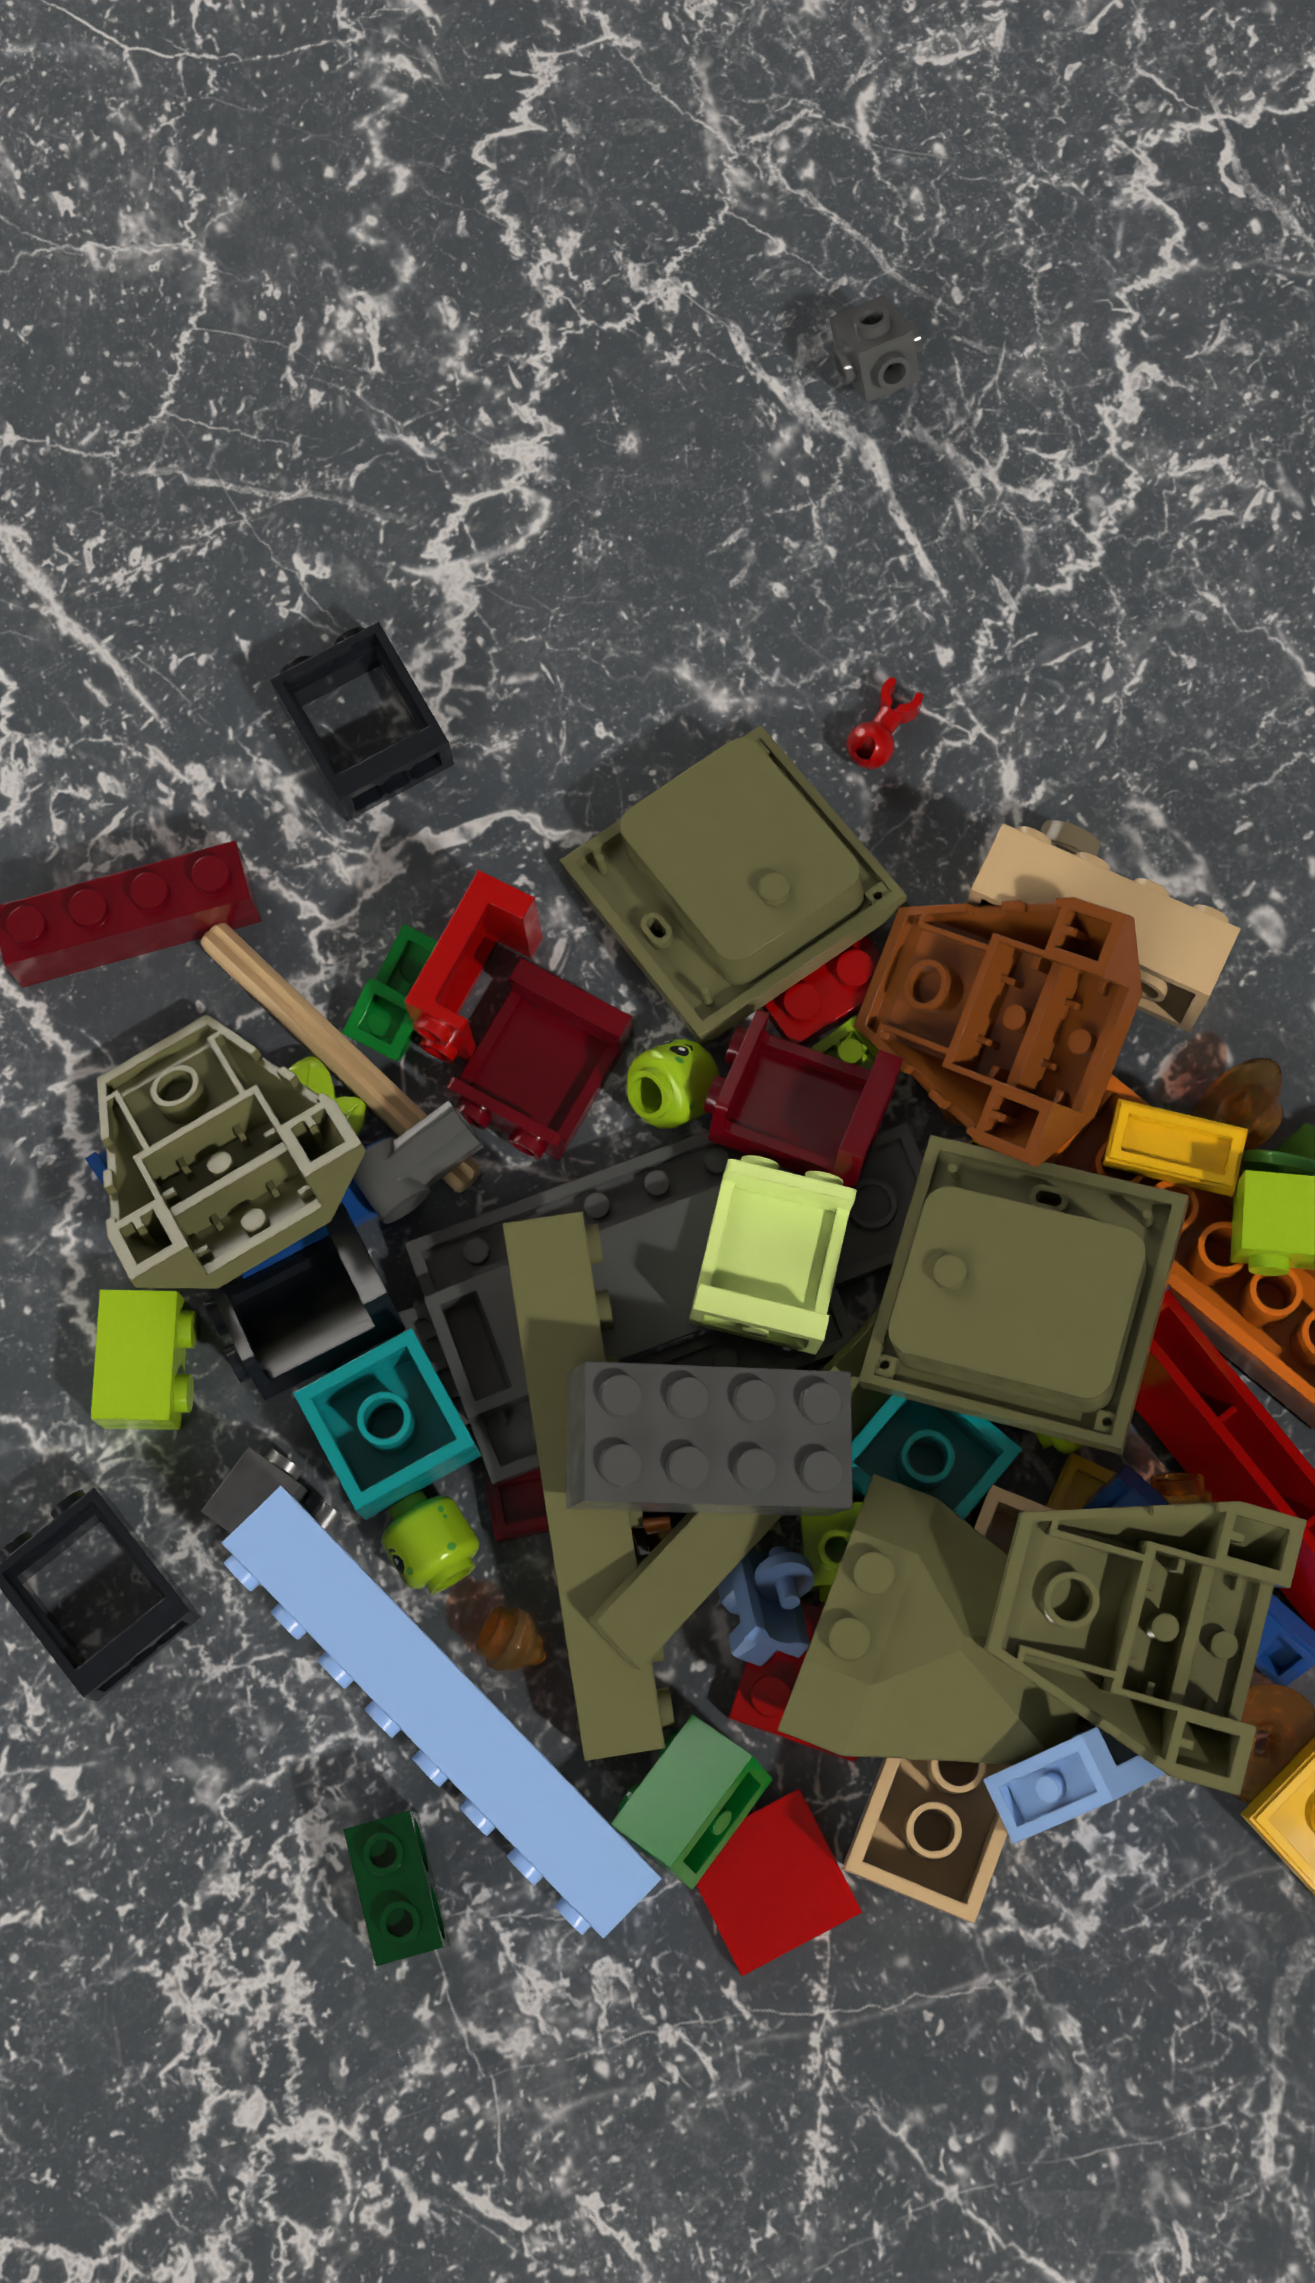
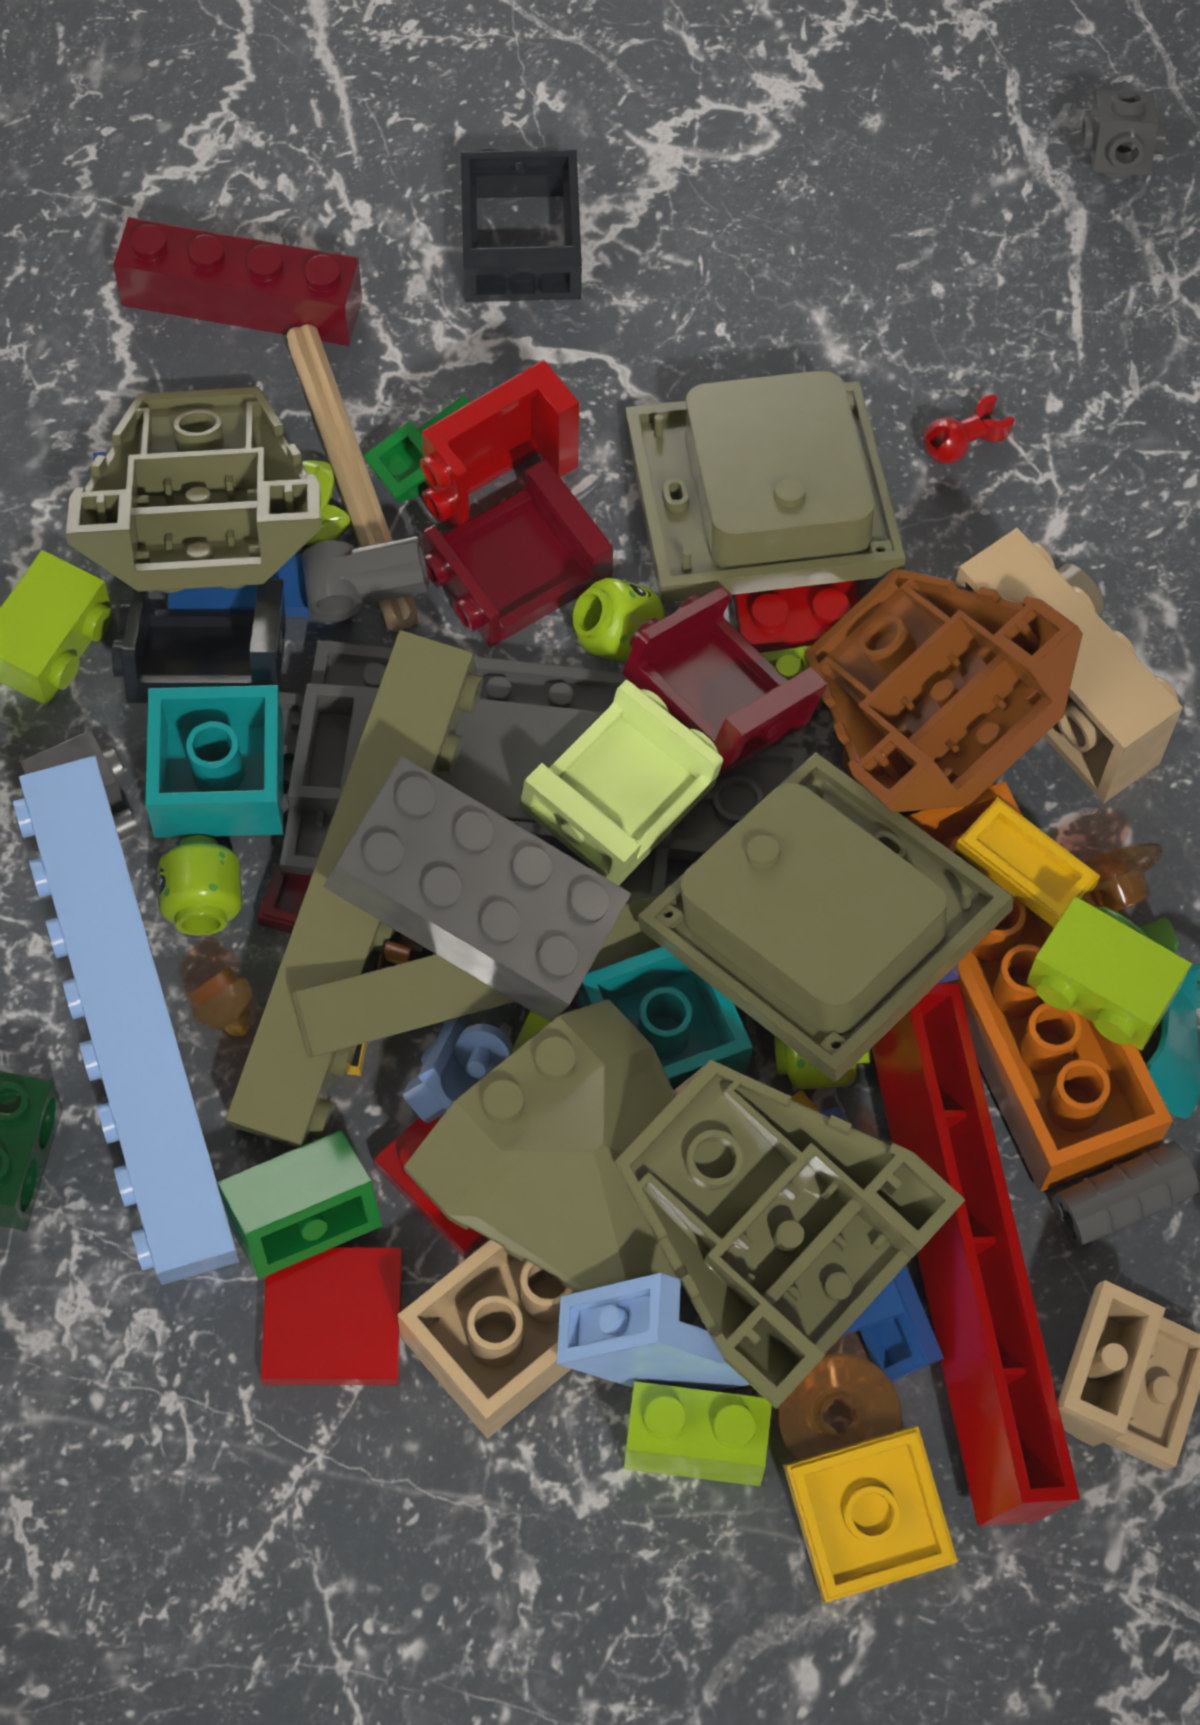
camera: 20 degrees right, 10 degrees down
(1151, 1828) = (698, 1434): none -> lime brick

